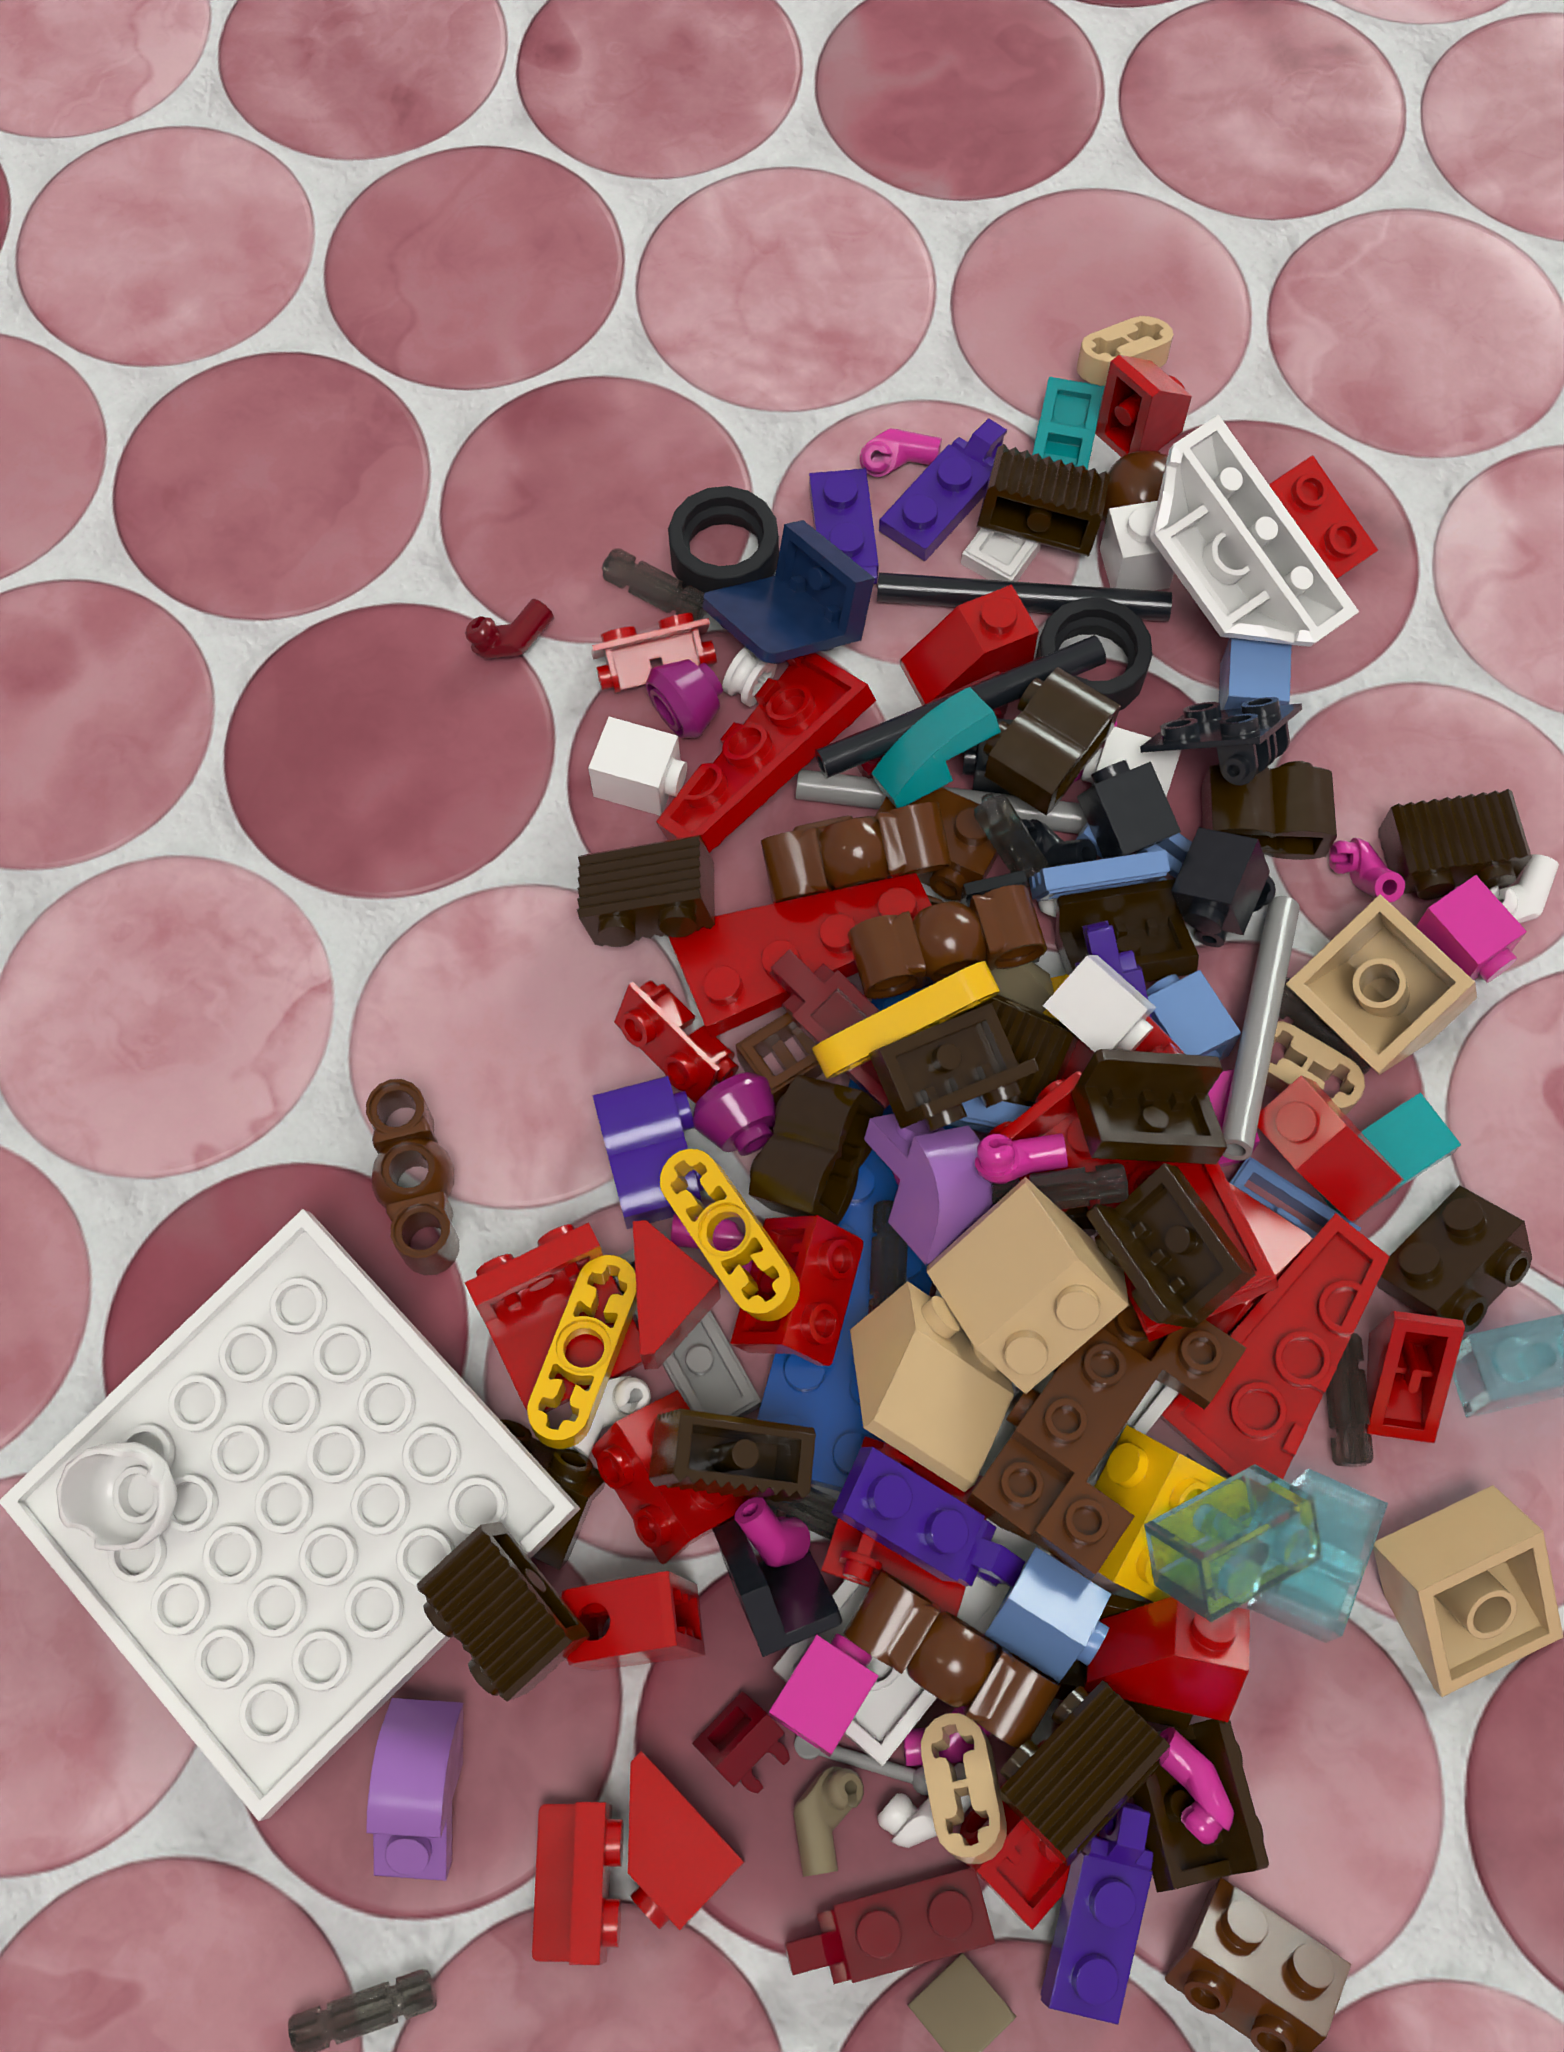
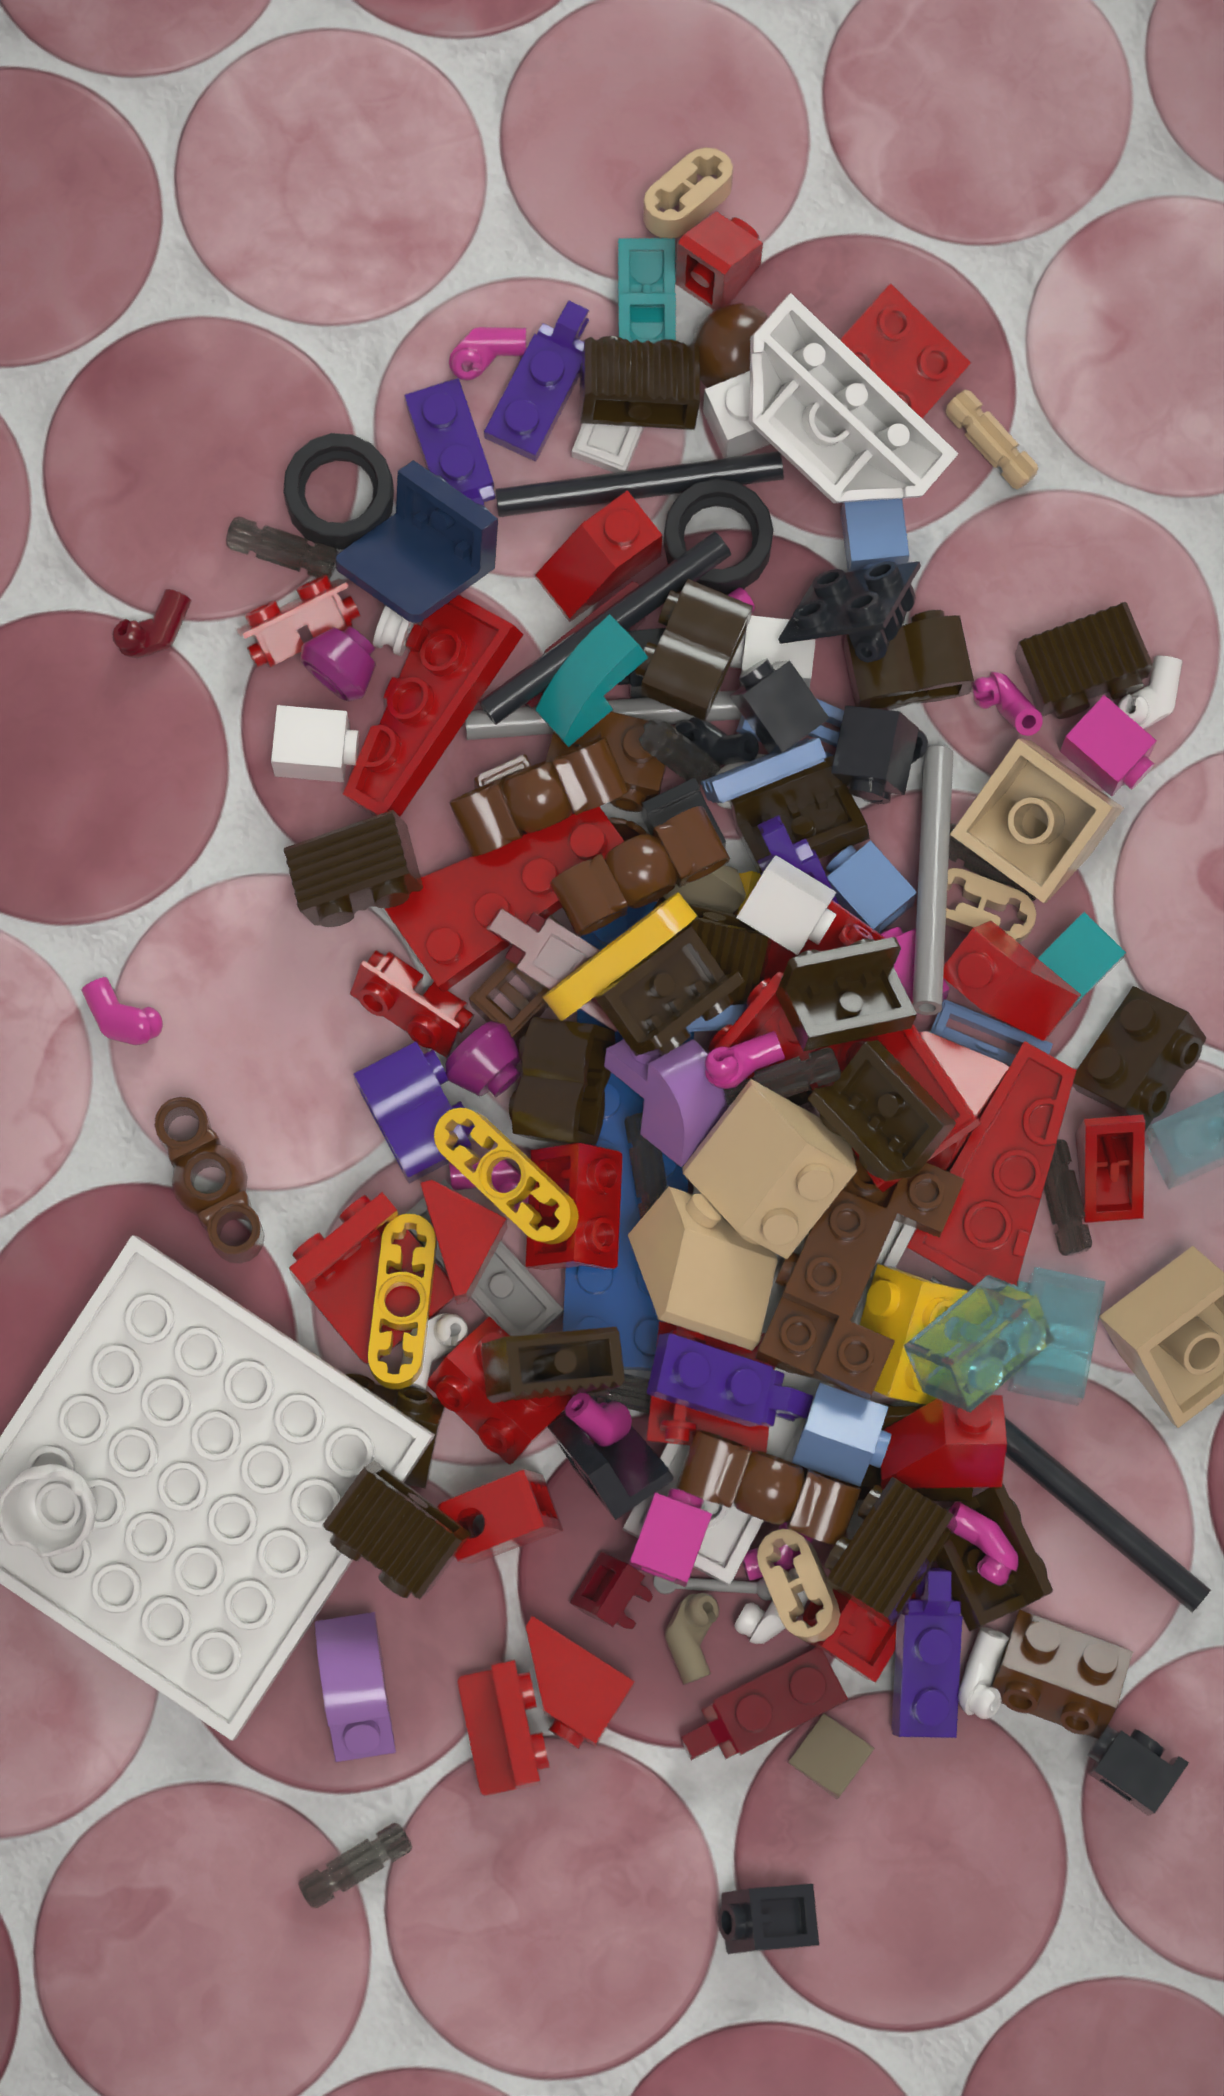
camera: 15 degrees left, 10 degrees up
(367, 996) = (120, 1021): none -> dark pink arm
(1161, 1944) = (975, 1689): none -> white arm
(1346, 1797) = (1104, 1519): none -> black piece
(1388, 623) = (991, 439): none -> tan axle

